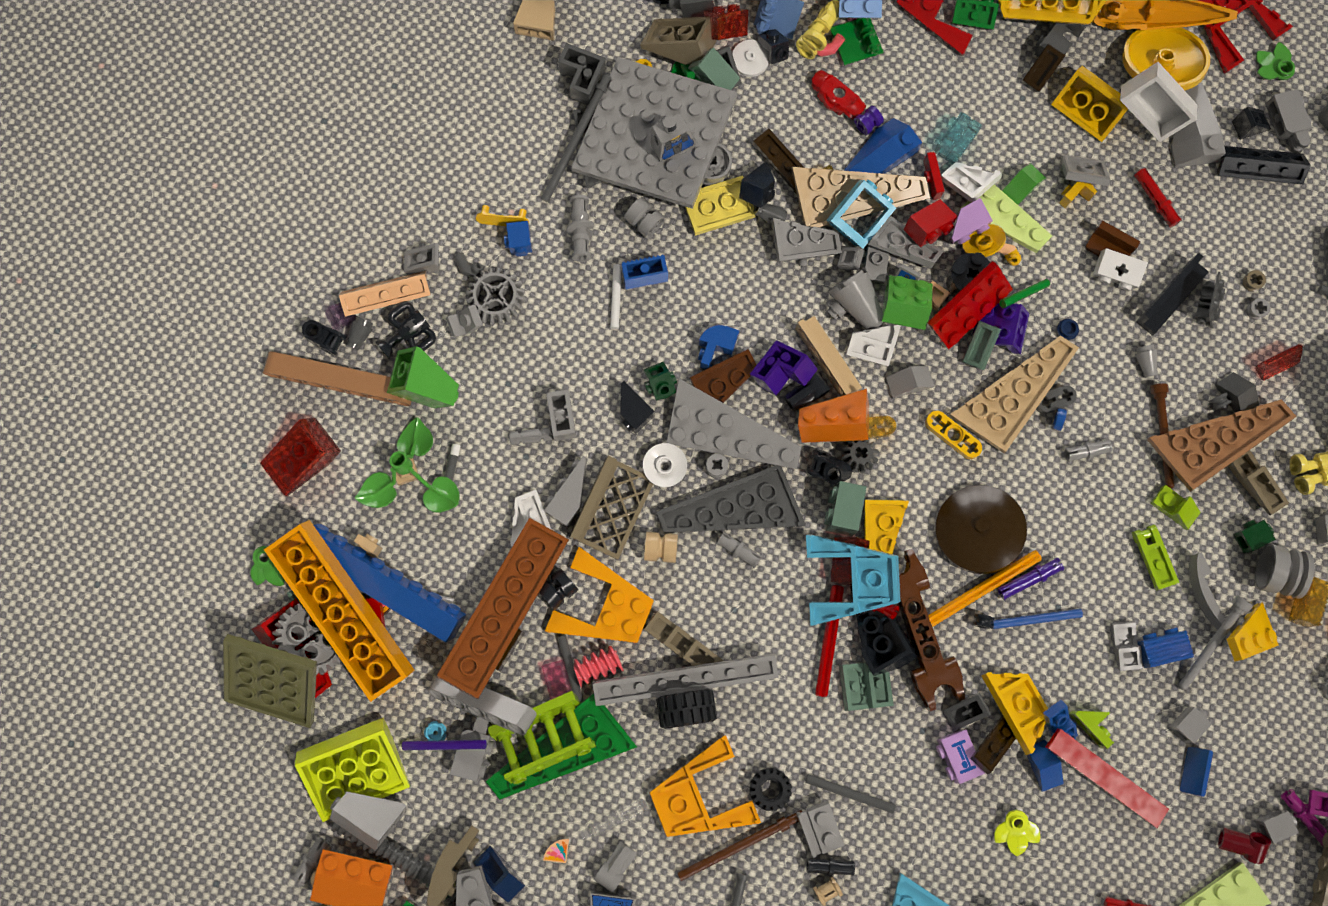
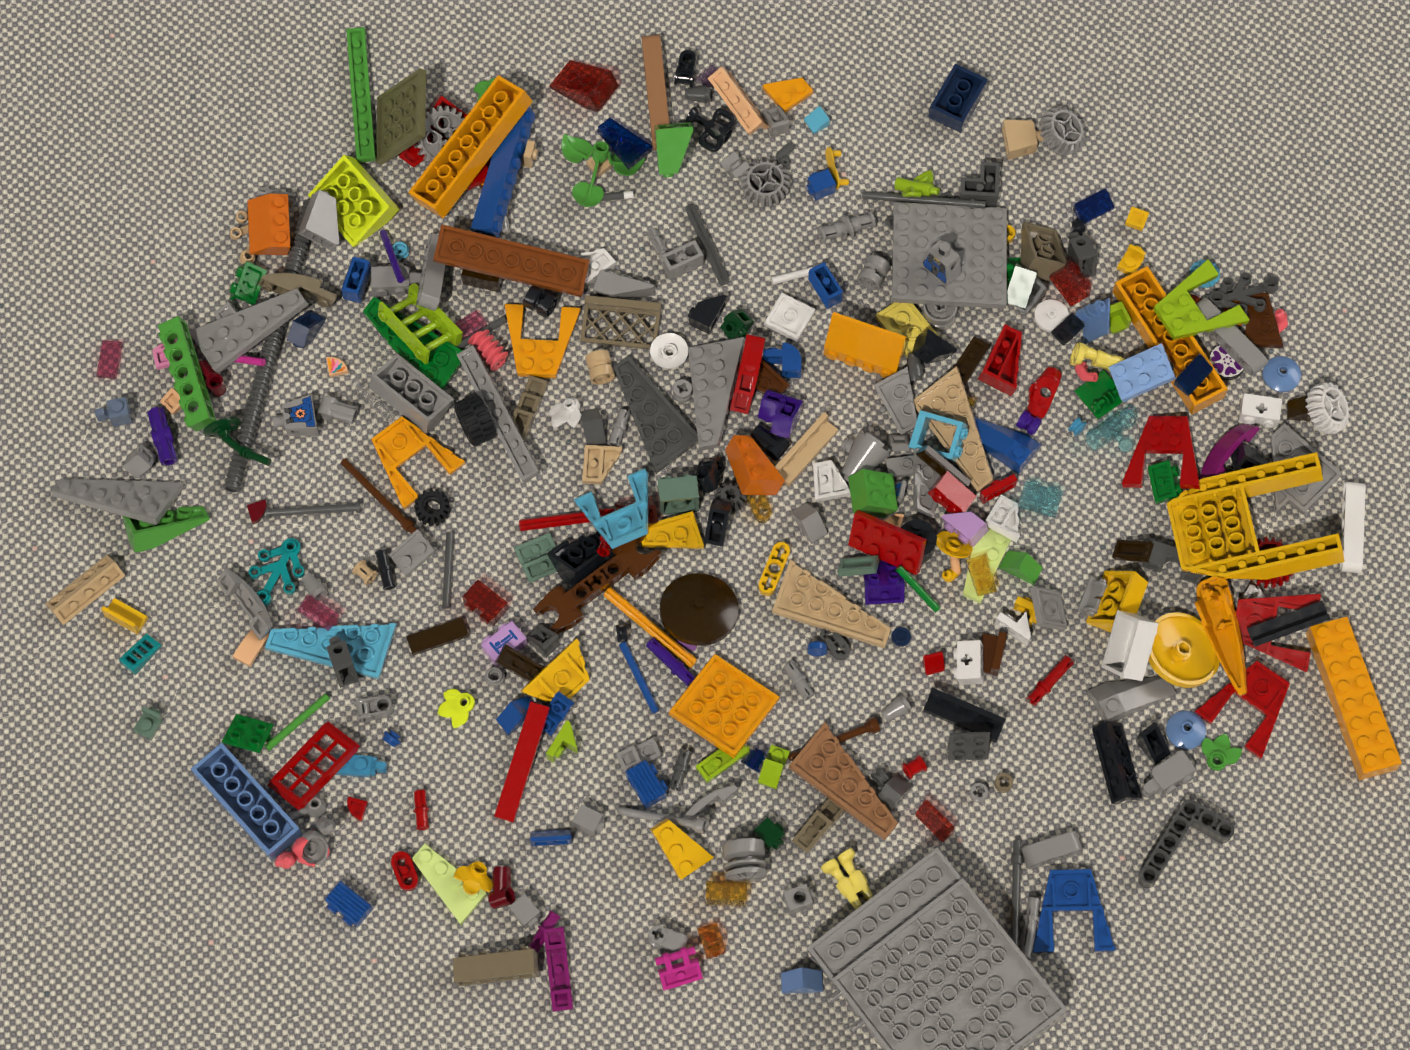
camera: 75 degrees right, 10 degrees down
(214, 720) = (360, 95): none -> bright green plate
(391, 237) = (788, 92): none -> light orange wing
(391, 434) = (624, 143): none -> clear blue wing
(437, 217) = (817, 120): none -> medium azure slope
(458, 796) = (356, 280): none -> blue brick
(468, 61) = (958, 98): none -> dark blue brick
(547, 383) = (707, 244): none -> dark grey axle
(558, 138) = (919, 187): none -> lime plant
(624, 772) = (411, 393): none -> light grey slope
(665, 323) = (789, 317): none -> white plate
(706, 603) = (566, 412): none -> white plate
(725, 386) = (747, 374): none -> red slope
(726, 577) = (593, 427): none -> dark grey slope
(735, 254) = (864, 345): none -> light orange slope
(774, 585) = (599, 462): none -> tan wing
(791, 121) = (1002, 362): none -> red wedge
(887, 74) = (1077, 426): none -> dark azure bush
(892, 476) = (718, 522): none -> black brick
(896, 32) = (1121, 424): none -> clear light blue piece
(898, 221) = (940, 464): none -> dark brown tile
(906, 763) = (485, 603): none -> clear red brick
(926, 829) = (437, 636): none -> dark brown tile
(1000, 779) = (494, 671): none -> light grey plate
(1030, 225) = (981, 575): none -> clear yellow slope
(1074, 121) = (1089, 602): none -> light grey hinge
(1093, 207) = (1017, 630): none -> white slope
(1100, 537) = (724, 706): none -> light orange plate
(1106, 306) = (933, 663): none -> red slope
(1155, 607) = (680, 769): none -> dark grey pin
(1169, 525) = (754, 759): none -> clear blue brick
(1217, 363) = (914, 767): none -> red bush
(1229, 875) = (474, 878): none -> yellow plate
(1235, 93) = (1179, 736): none -> medium blue dish

